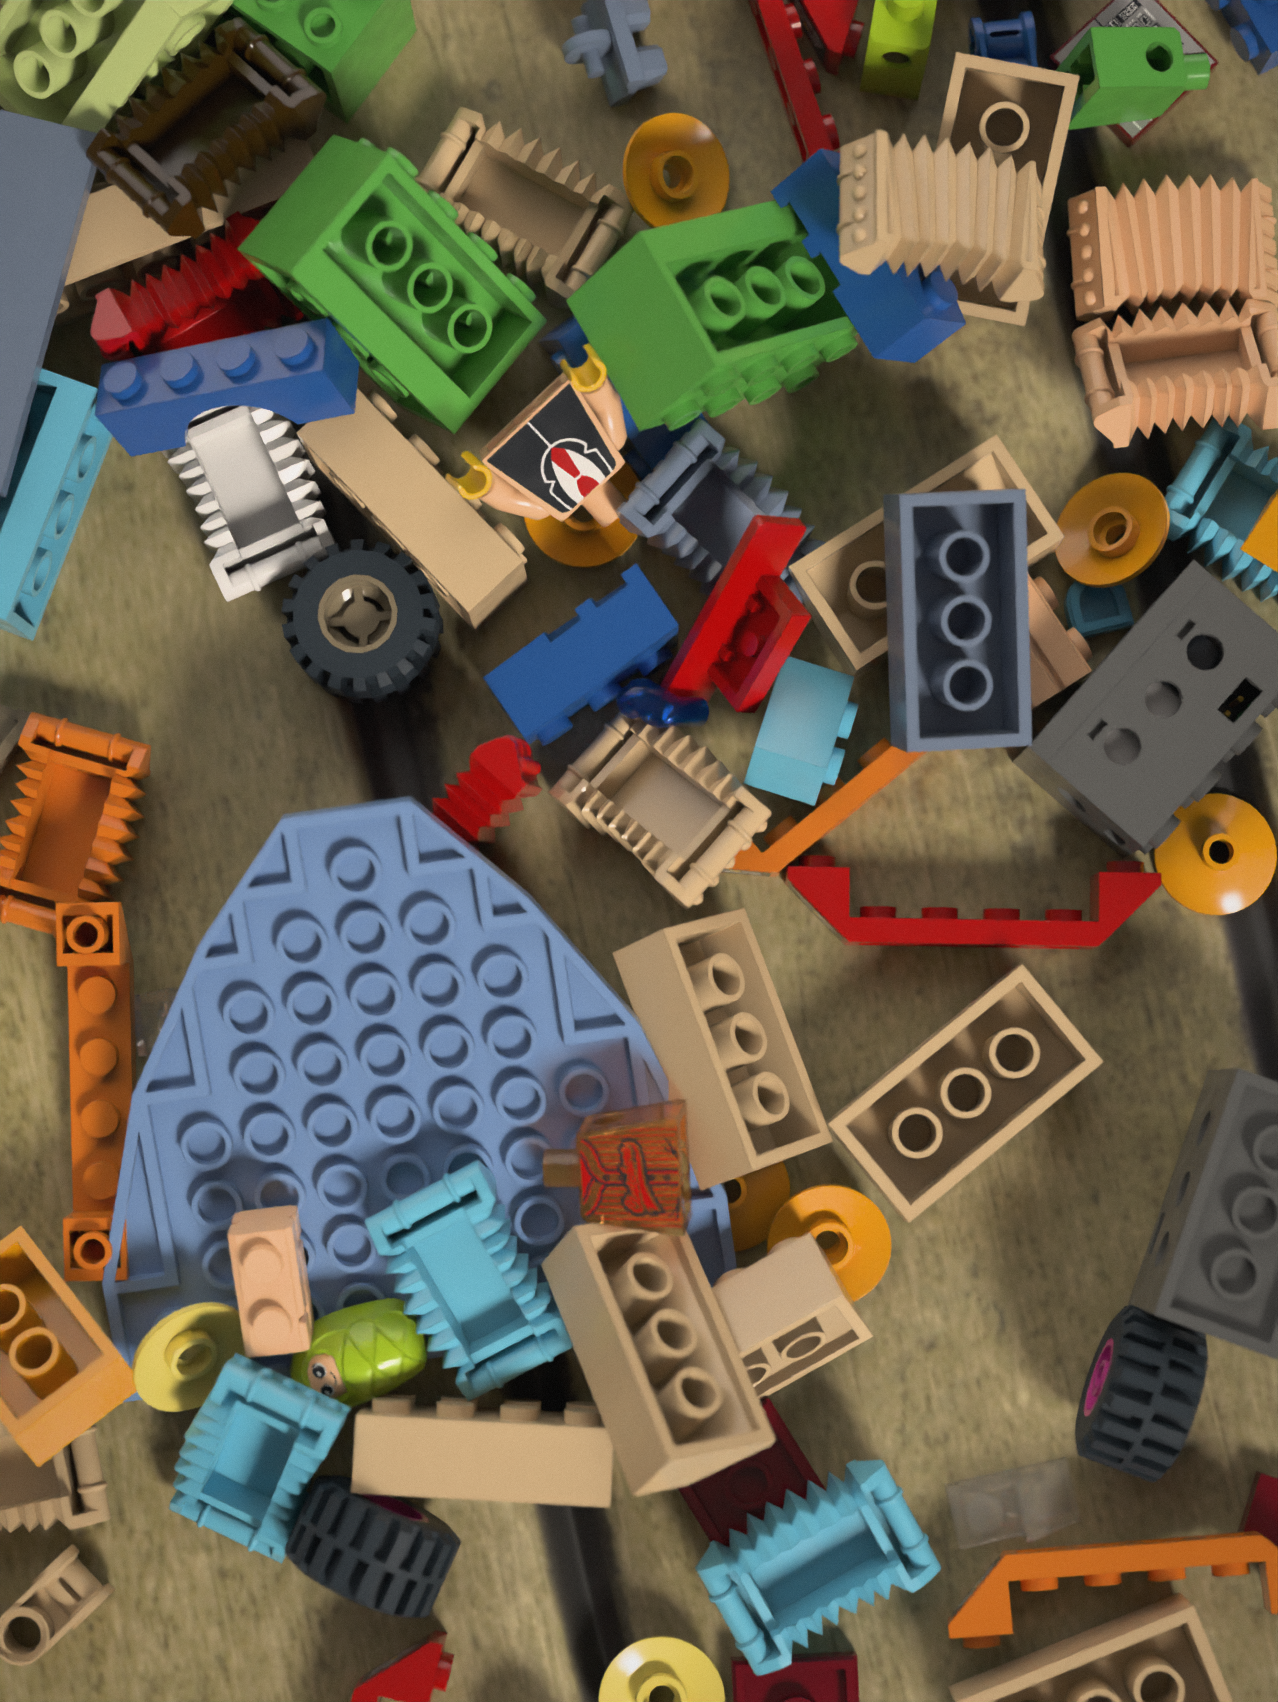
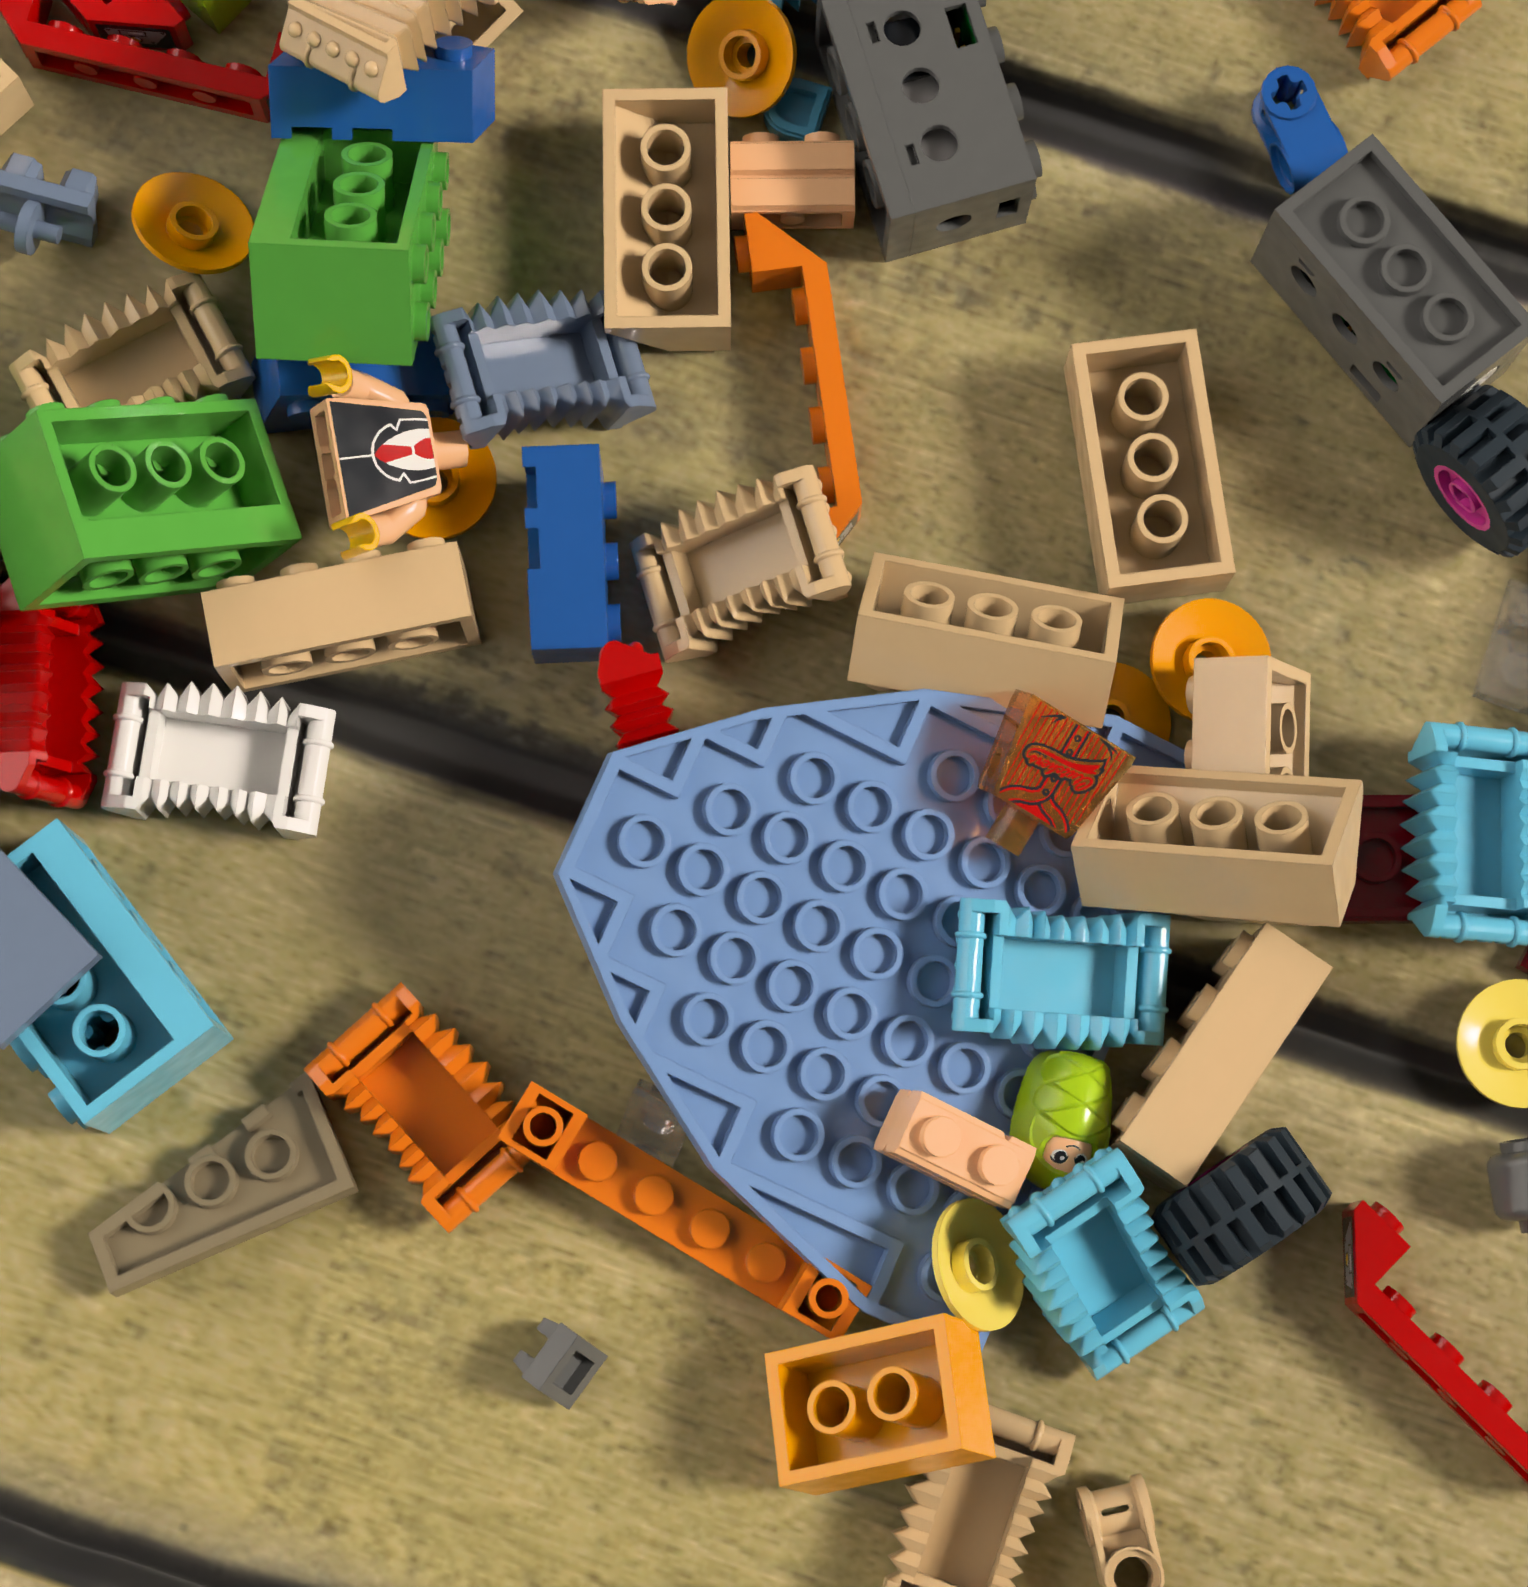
camera: 65 degrees left, 5 degrees down
(289, 370) = (157, 635): blue arch -> none
(363, 621) = (412, 727): black wheel -> none
(659, 706) = (653, 513): clear blue arm -> none
(745, 622) = (637, 398): red bracket -> none
(800, 731) = (751, 409): medium azure piece -> none
(958, 619) = (746, 208): sand blue brick -> none
(1112, 901) = (909, 479): red slope -> none
(1195, 878) = (1082, 170): light orange dish -> none

